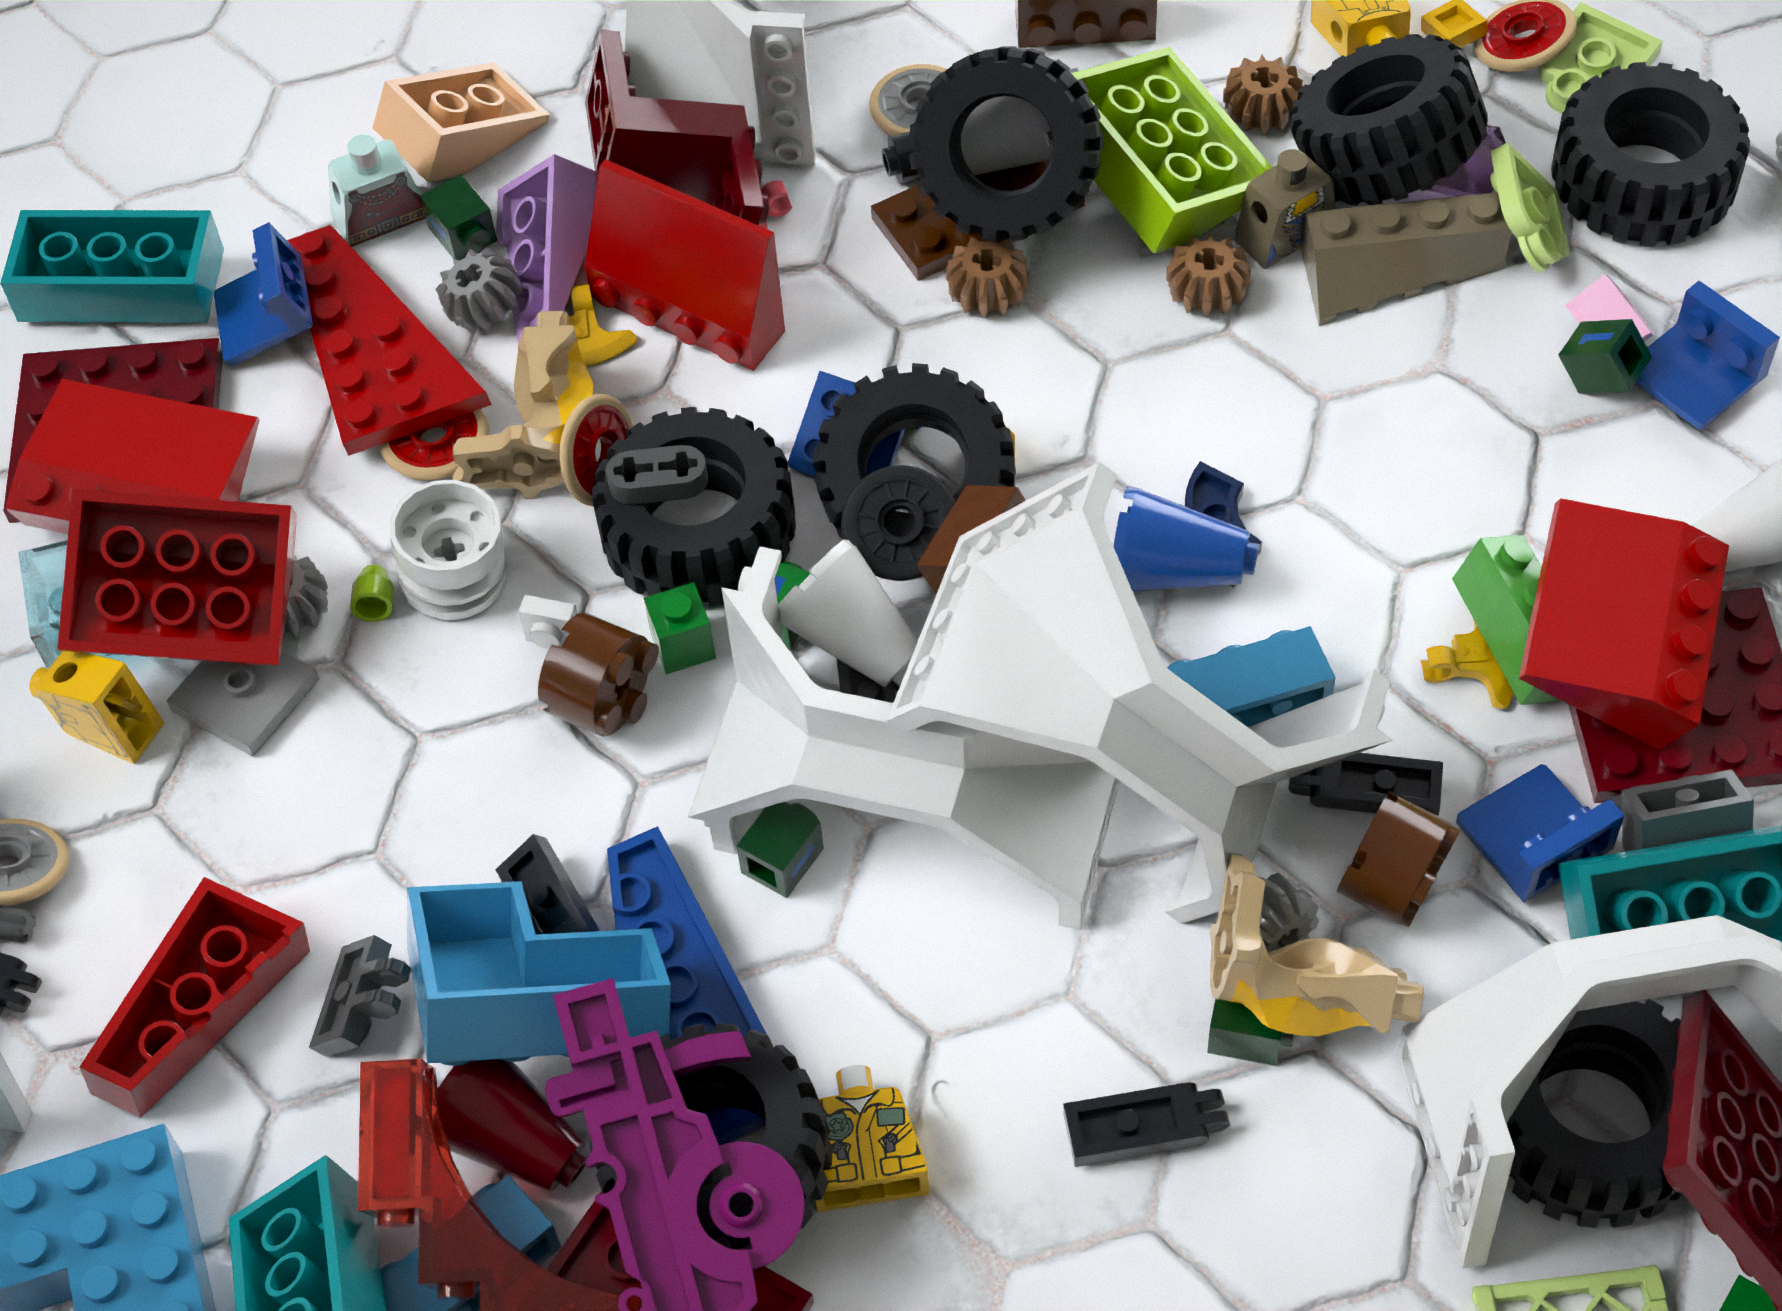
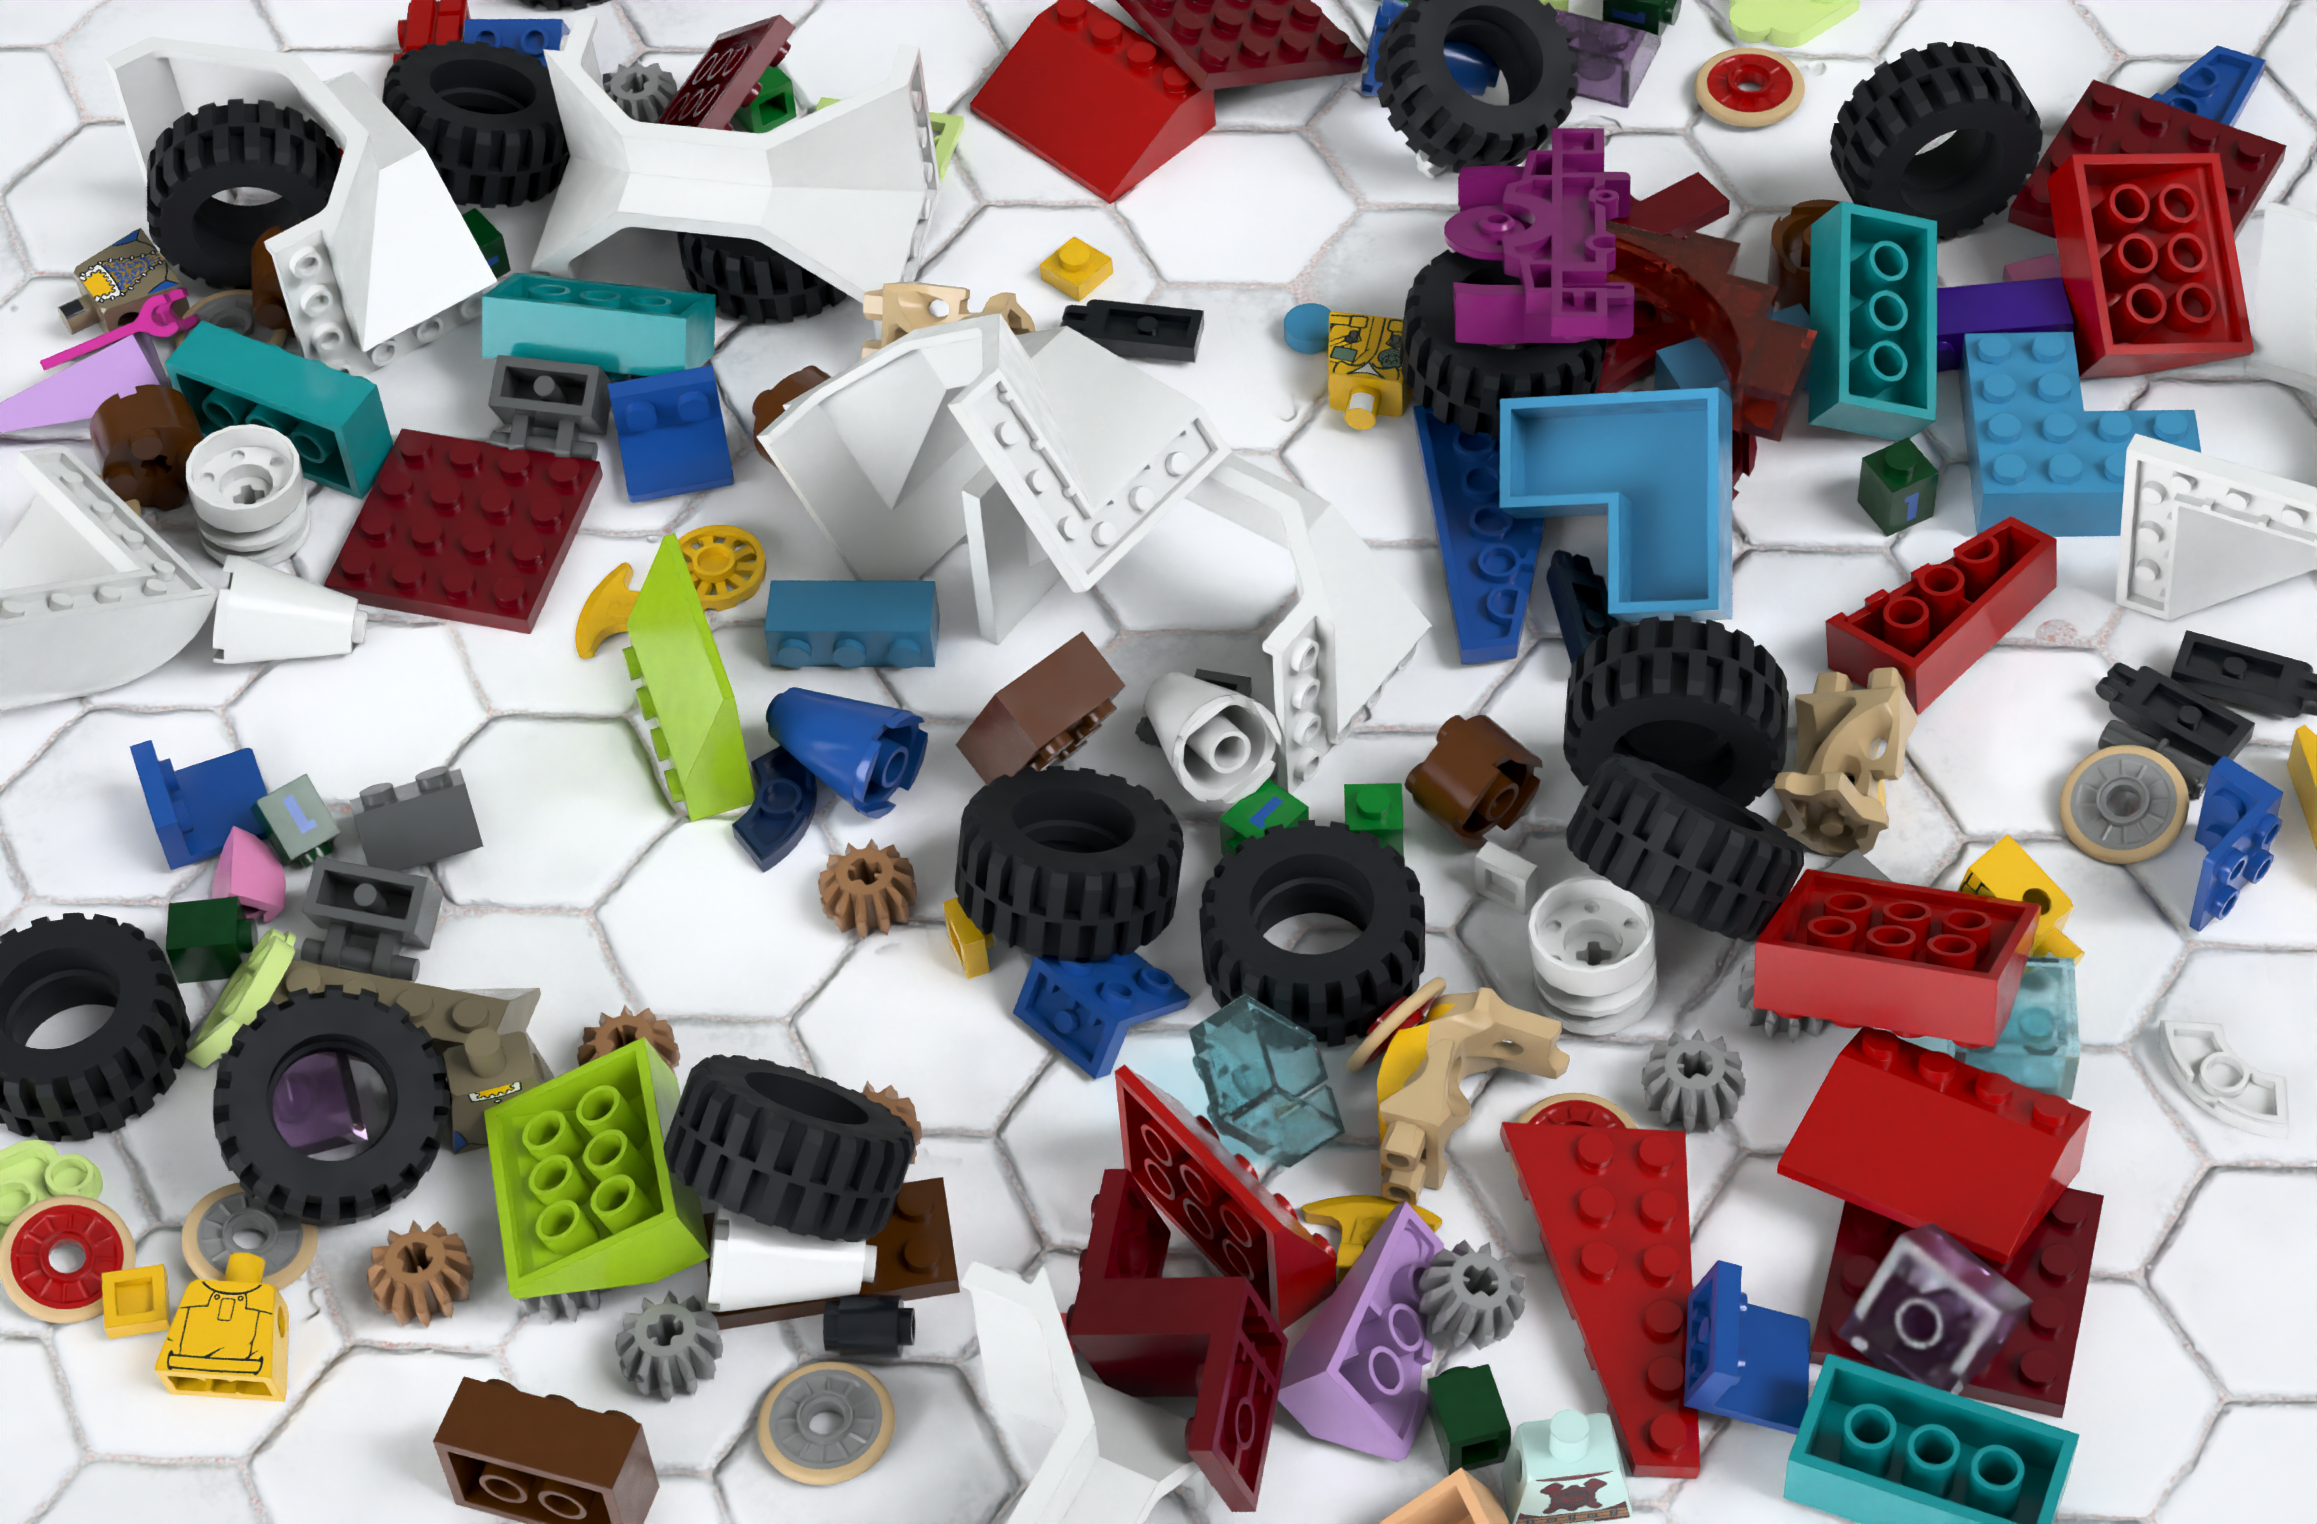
camera: 160 degrees left, 5 degrees down
(113, 347) = (1934, 1312): none -> clear purple slope
(260, 755) = (1839, 739): none -> tan hips
(263, 1146) = (1897, 486): none -> dark green brick
(321, 631) = (1684, 847): none -> black tyre
(347, 499) = (1693, 1081): none -> light grey gear
(356, 995) = (1790, 591): dark grey hinge -> none
(372, 594) = (1689, 977): lime hose -> none
(413, 726) = (1680, 700): none -> black tyre
(656, 474) = (1346, 899): dark grey beam -> none
(682, 356) = (1253, 1077): none -> clear light blue piece
(880, 495) = (1115, 775): black wheel -> none
(957, 1196) = (1307, 328): none -> dark azure tile
(1094, 442) = (867, 888): none -> medium nougat gear
(1250, 1202) = (1076, 268): none -> yellow plate
(1336, 550) = (686, 691): none -> lime slope
(1365, 779) = (776, 518): black hinge -> none
(1420, 727) = (718, 565): none -> yellow wheel
(1487, 309) = (374, 905): none -> dark grey brick
(1500, 592) = (563, 598): bright green brick -> none
(1502, 384) = (416, 820): none -> dark grey brick
(1601, 251) = (208, 938): none -> dark green brick
(1626, 618) = (482, 519): red slope -> none

